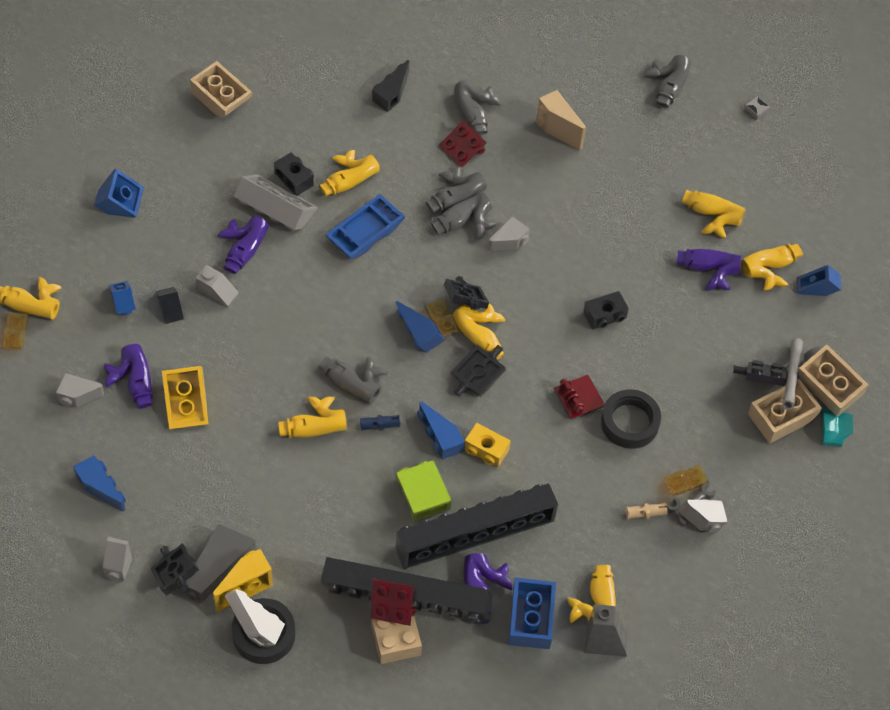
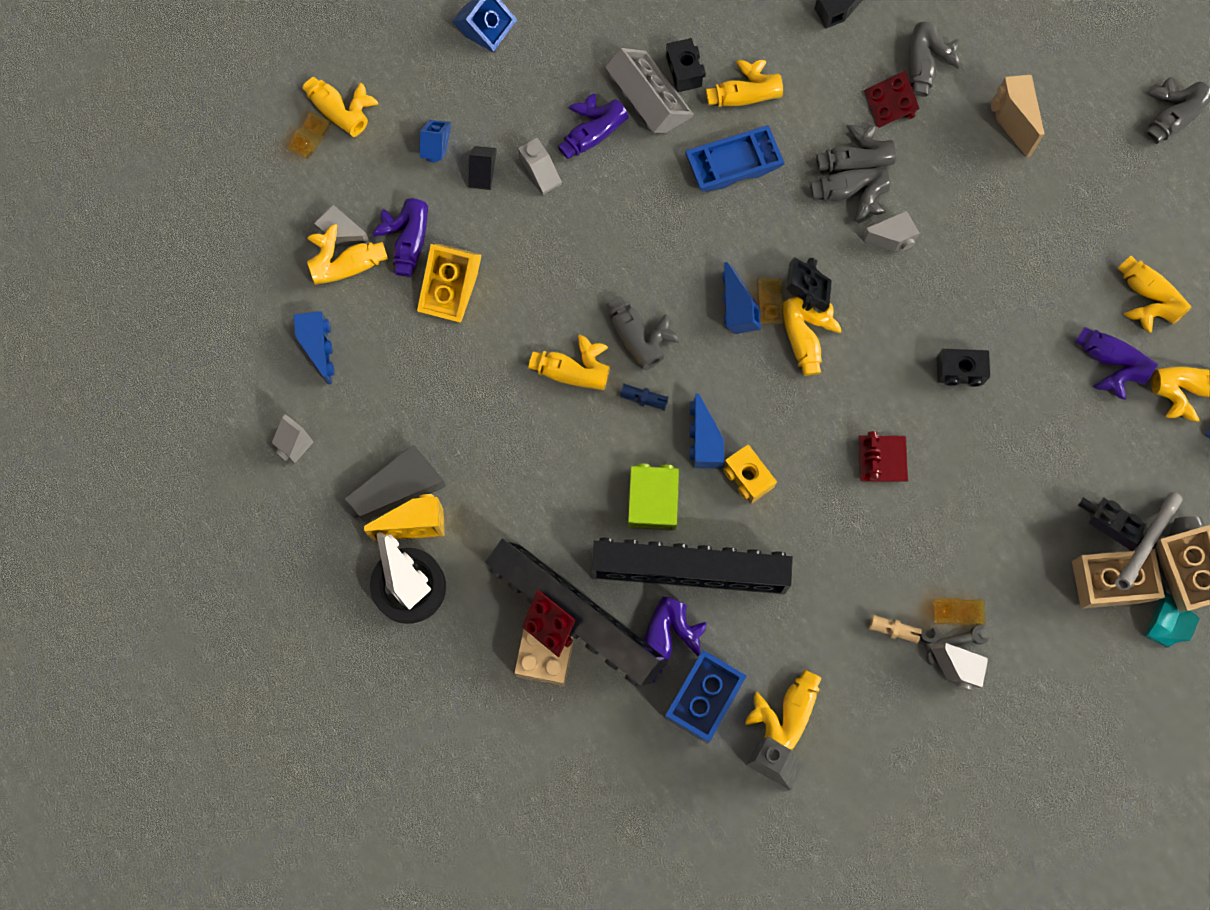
camera: 30 degrees right, 15 degrees up
(97, 413) = (347, 264): none -> yellow piece
(174, 569) = (344, 476): black plate -> none
(478, 370) = (781, 381): black plate -> none
(638, 399) = (950, 491): black tyre -> none

